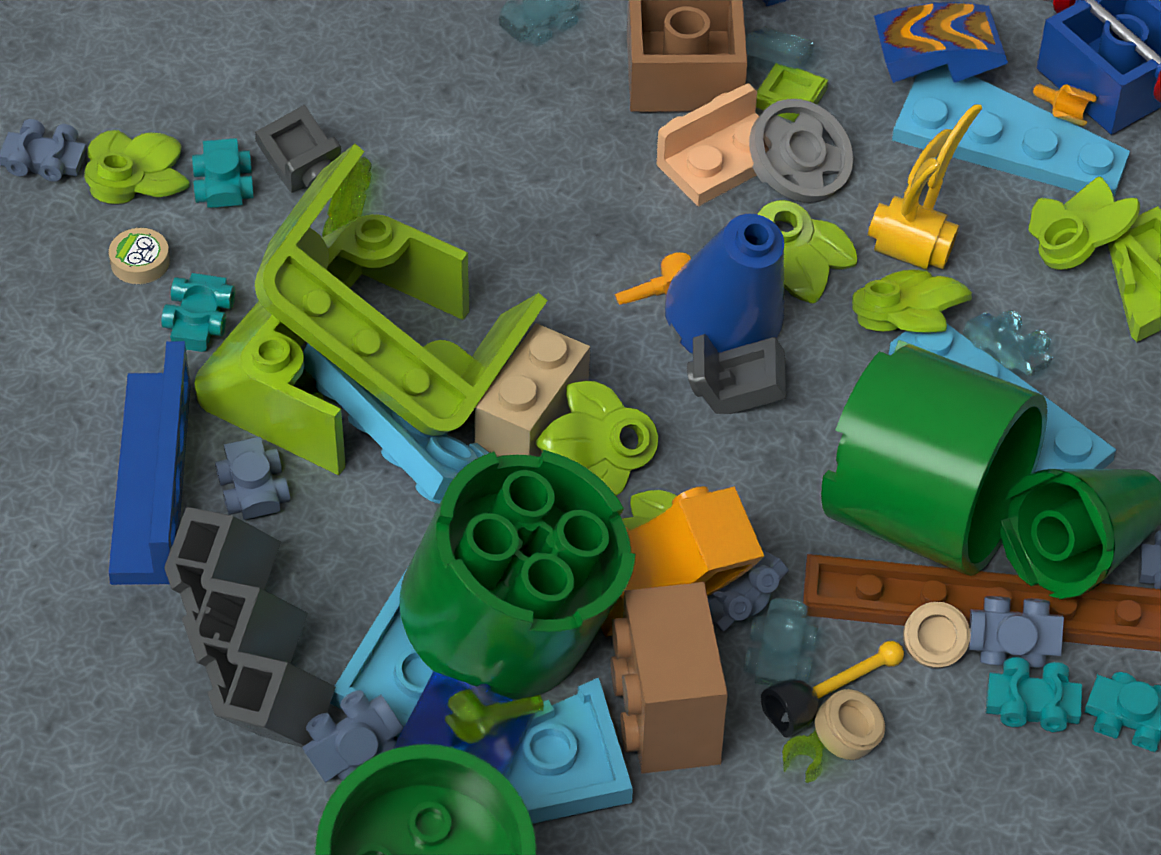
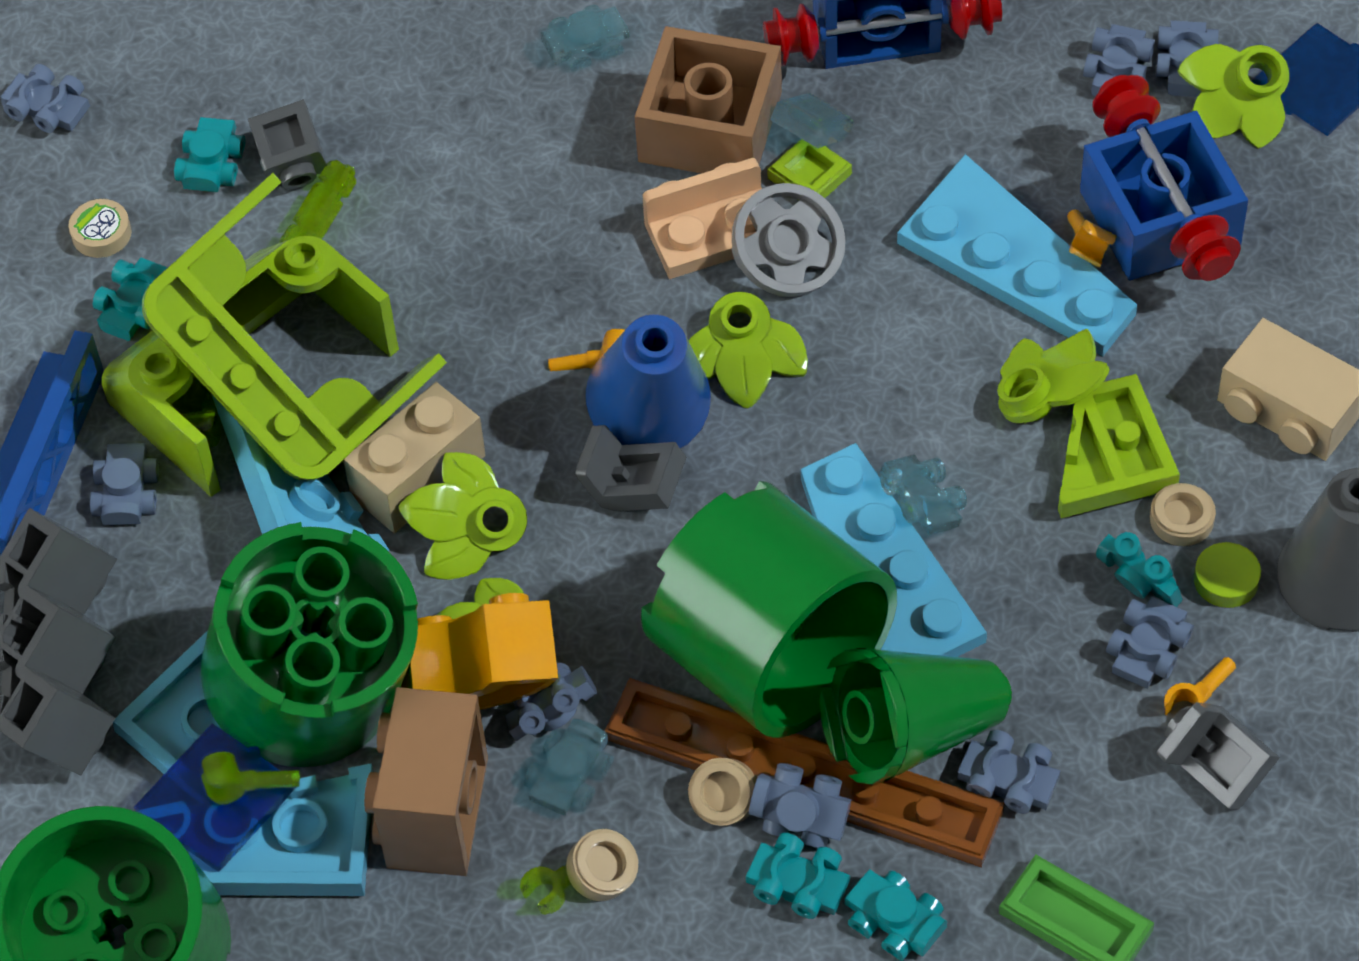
camera: 20 degrees right, 5 degrees up
(141, 162) = (127, 131): lime plate -> none
(354, 740) = (114, 777): sand blue piece -> none
(801, 699) = (558, 830): black hinge -> none
(908, 301) = (836, 427): lime plate -> none
(917, 231) = (873, 351): yellow plant -> none
(937, 35) = (981, 137): slope -> none

